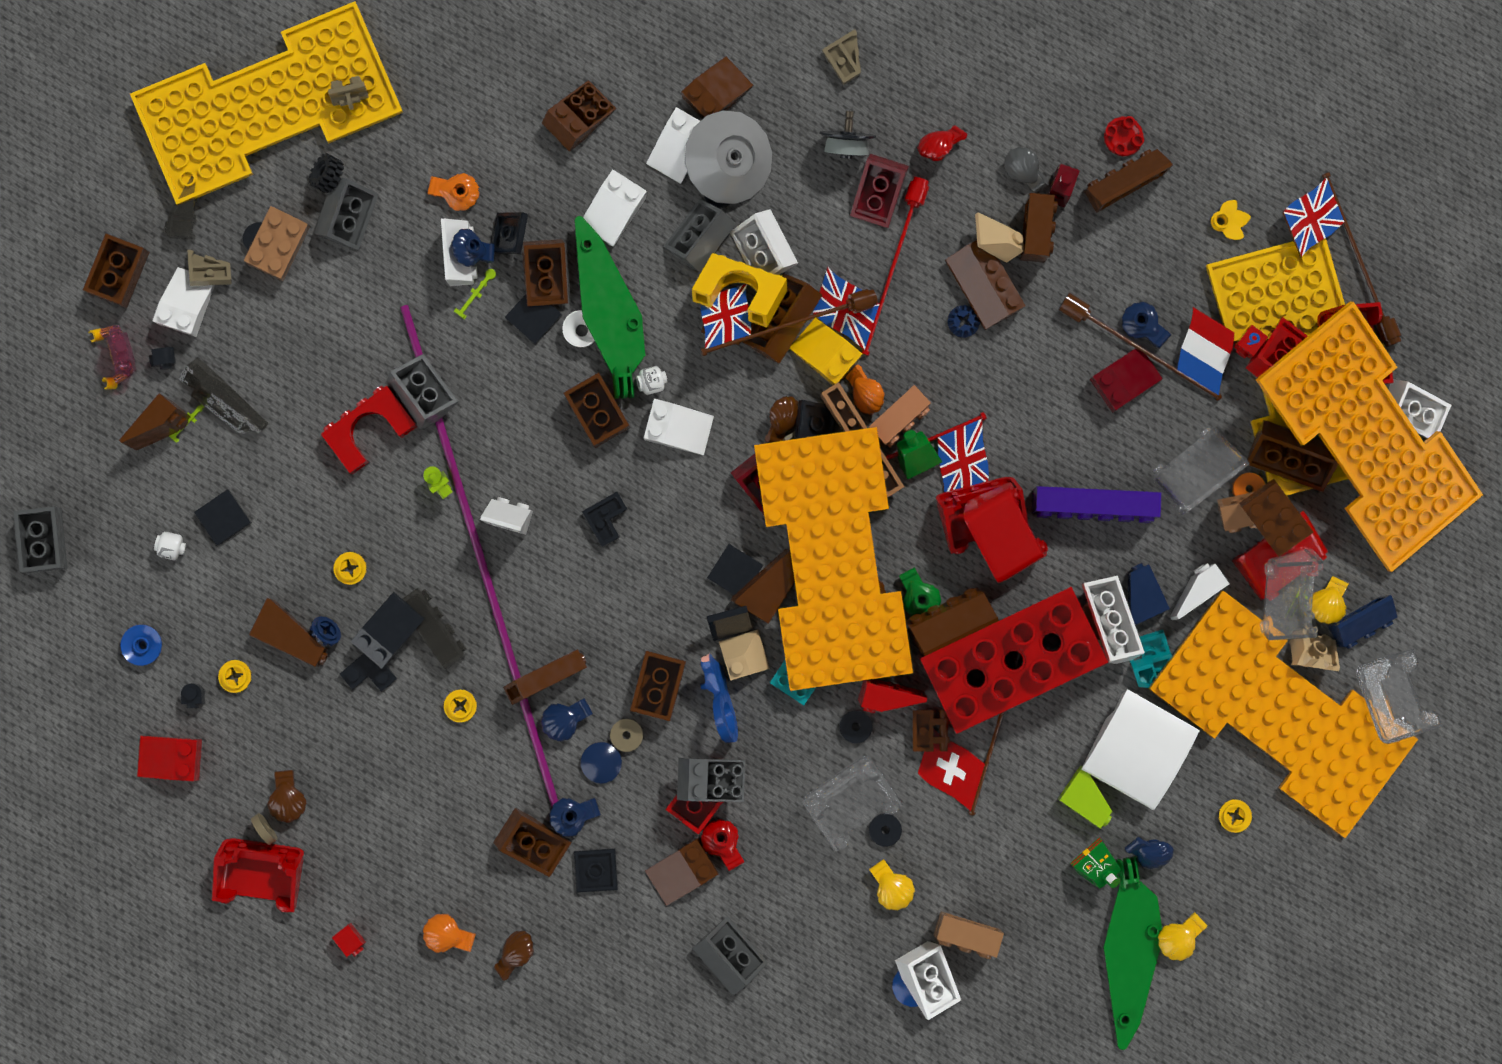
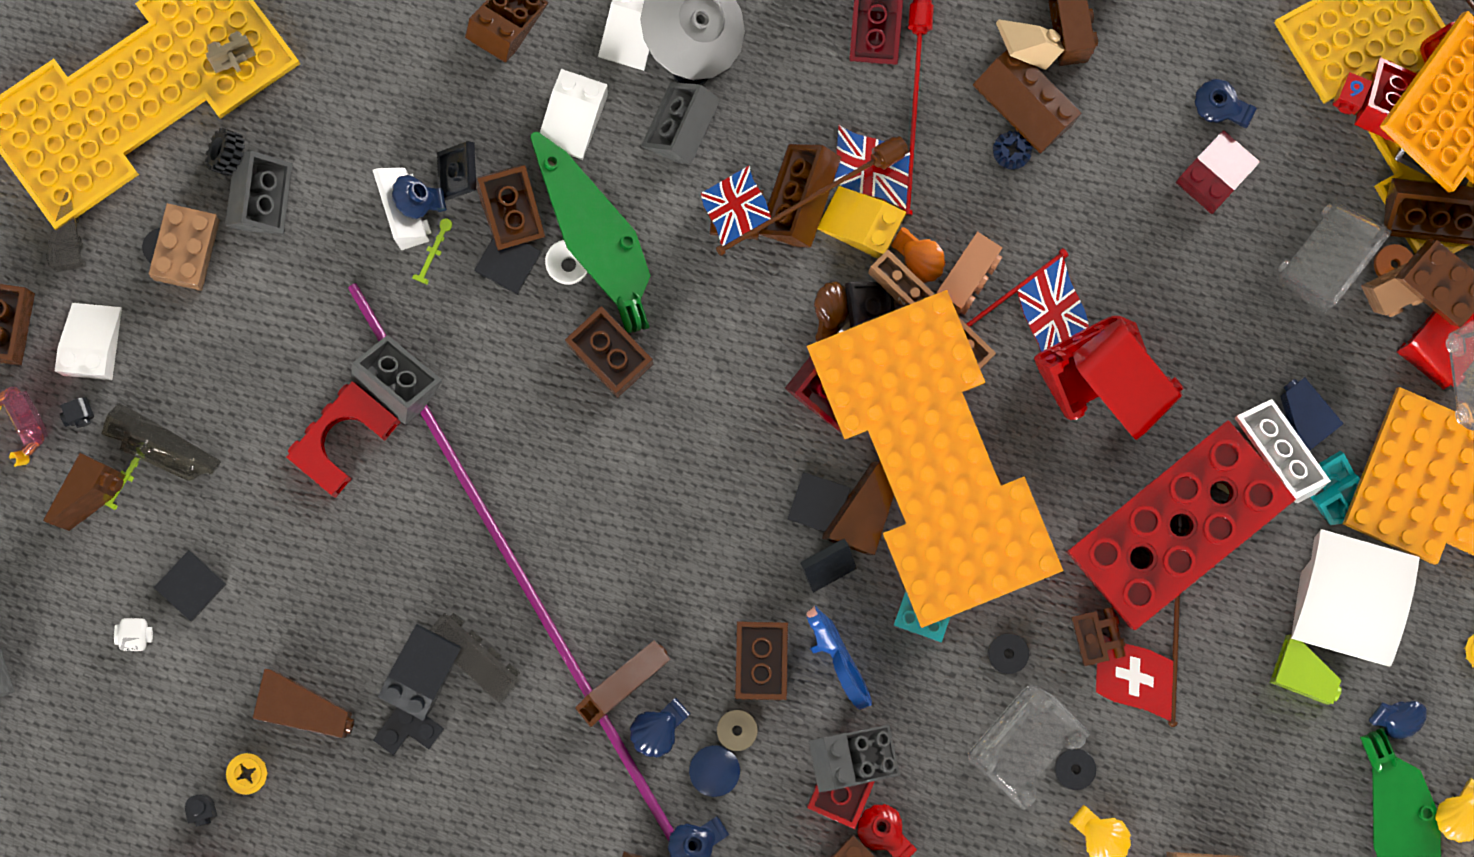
camera: 15 degrees left, 5 degrees down
(131, 645) = (111, 761): blue dish -> none
(207, 270) = (109, 298): dark tan wing -> none
(333, 632) = (337, 684): dark blue gear -> none
(342, 563) = (345, 607): yellow gear -> none
(437, 481) = (438, 480): lime hips -> none
(448, 190) = (374, 138): orange animal -> none
(450, 705) = (516, 746): yellow gear -> none
(507, 516) = (532, 501): white slope -> none
(599, 518) = (642, 477): black plate -> none
(651, 380) = (664, 302): white head -> none
(678, 427) = (710, 349): white slope -> none
(724, 271) = (719, 156): yellow arch -> none
(744, 655) = (854, 600): tan slope -> none
(763, 243) = (758, 118): white slope -> none
(885, 696) = (1034, 608): red slope -> none
(916, 454) = (998, 313): green torso -> none
(917, 589) = (1038, 472): green animal -> none
(950, 621) = (1091, 499): reddish brown slope -> none
(1096, 503) = (1224, 320): dark purple brick -> none
(1097, 865) = (1341, 749): green torso -> none
(1201, 354) = (1298, 119): flag -> none
(1201, 586) = (1371, 391): white slope -> none

